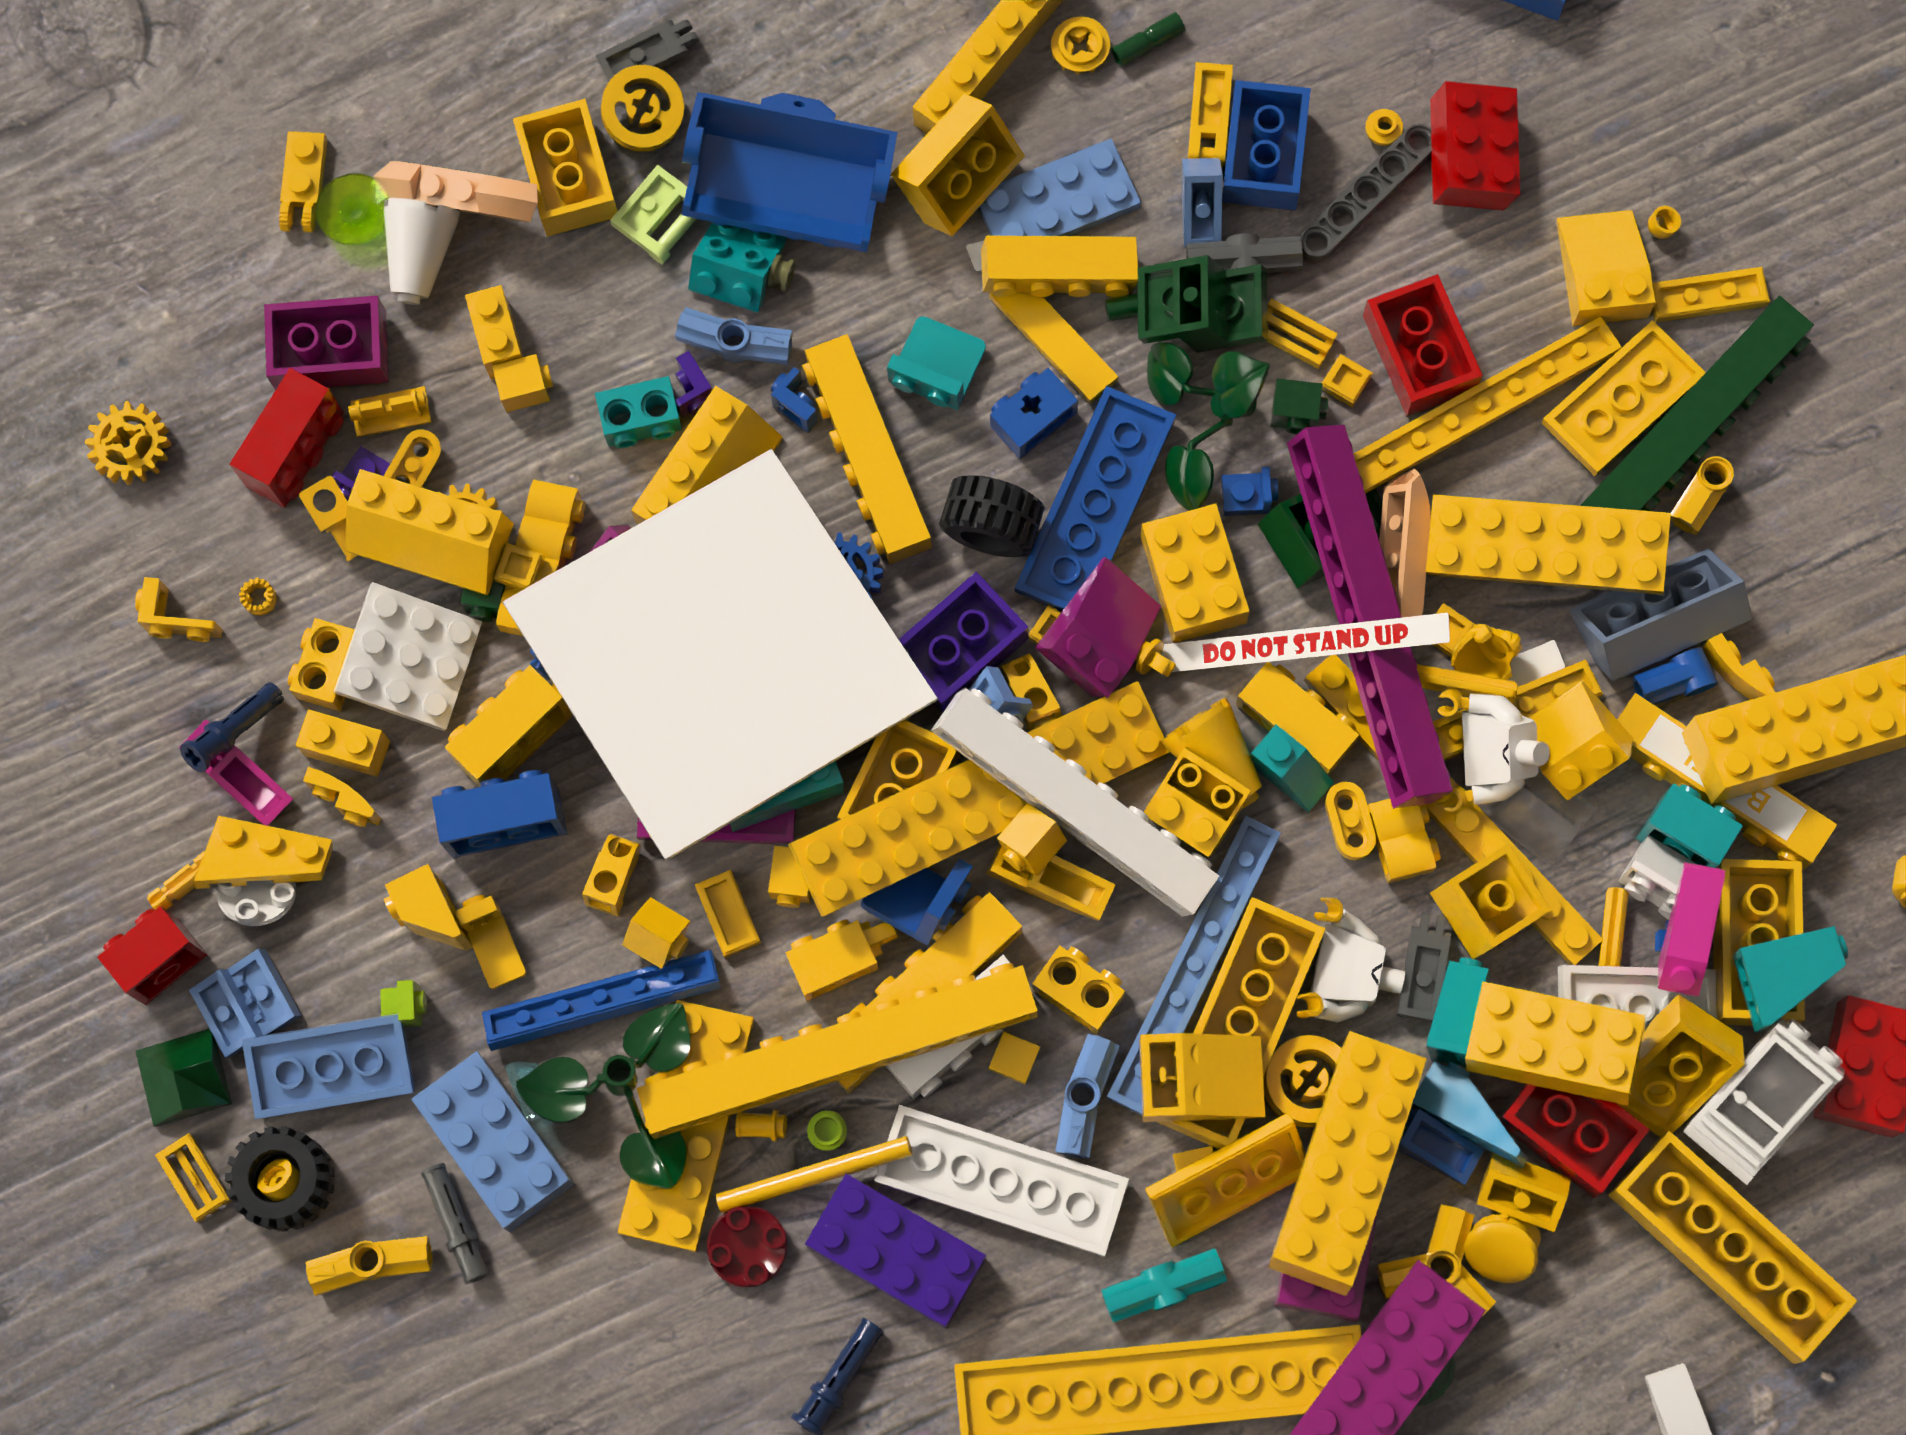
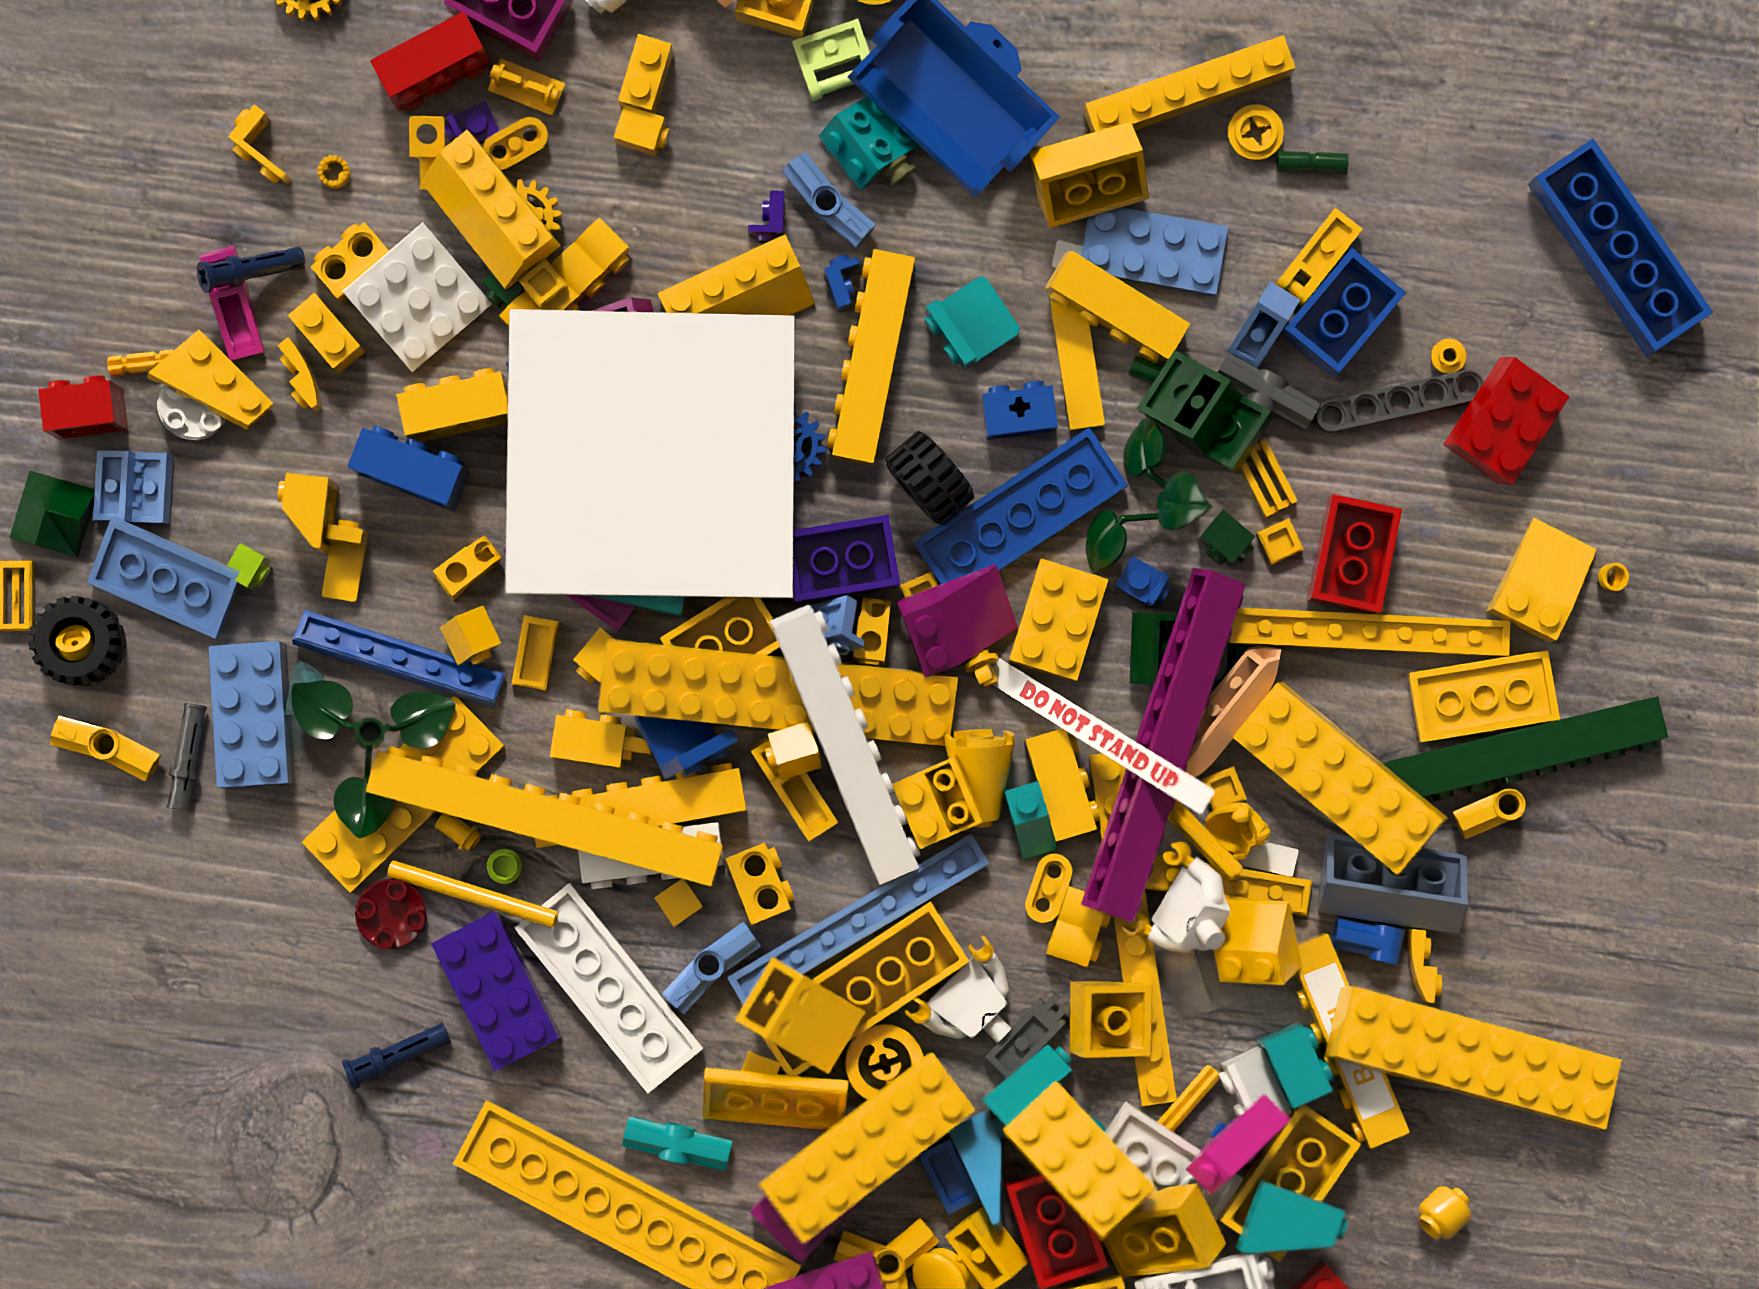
camera: 25 degrees right, 10 degrees up
(637, 402) = (720, 205): teal brick -> none
(1710, 294) = (1608, 656): yellow tile -> none

